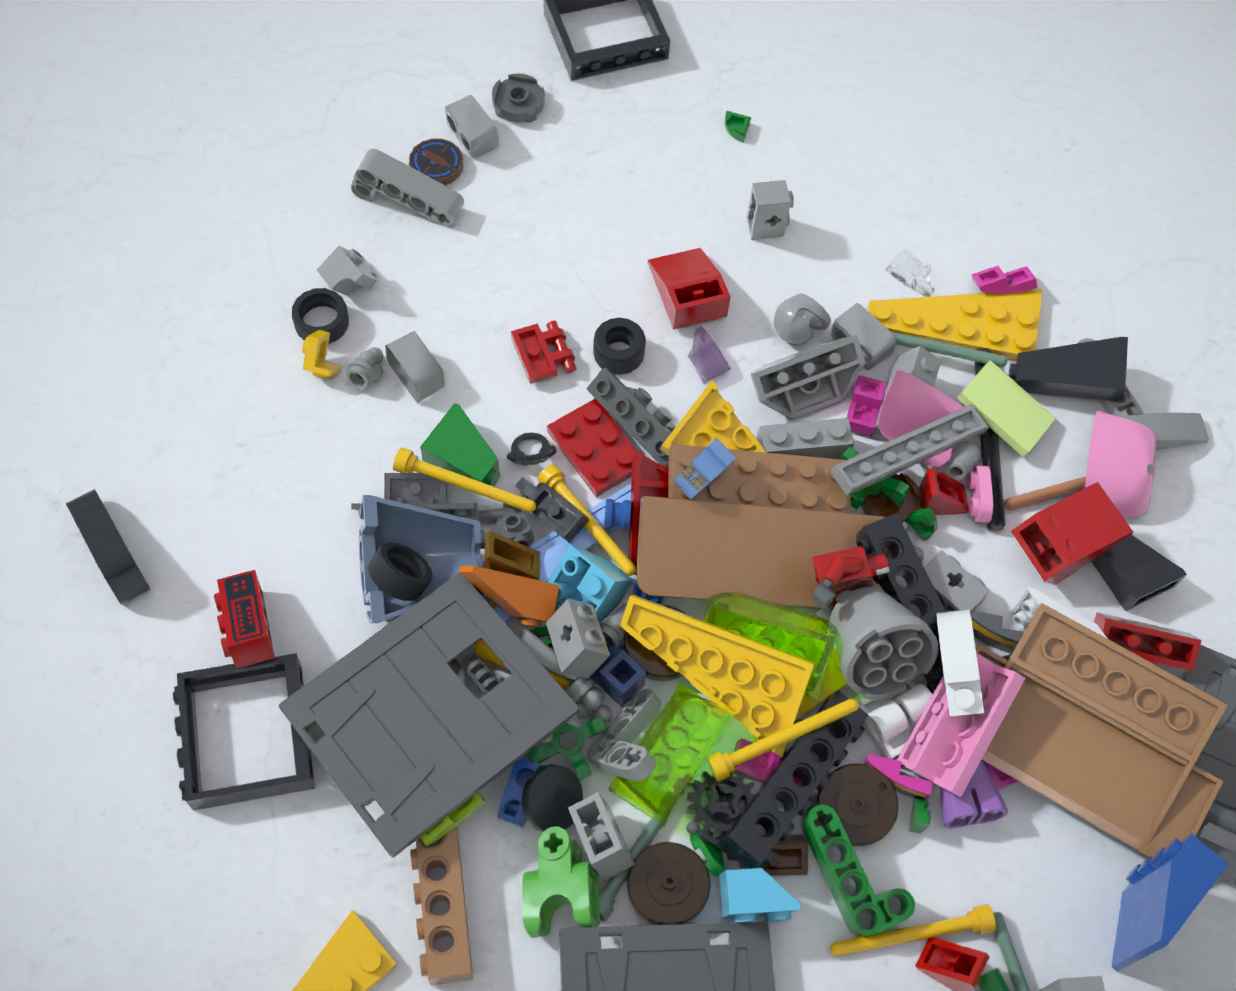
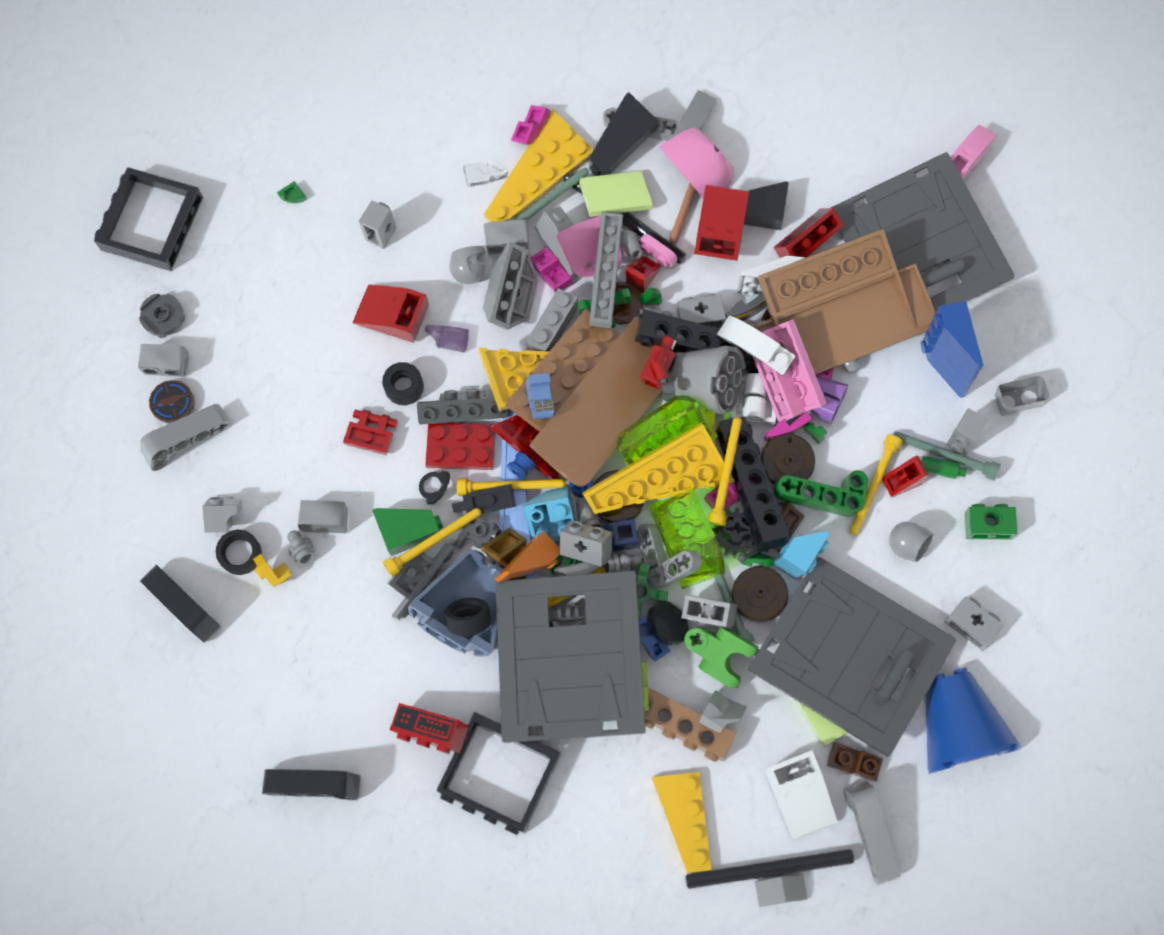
camera: 45 degrees left, 10 degrees up
(222, 298) = (180, 604): none -> black beam
(484, 933) = (721, 712): none -> light grey slope
(1035, 801) = (851, 366): none -> light grey hinge

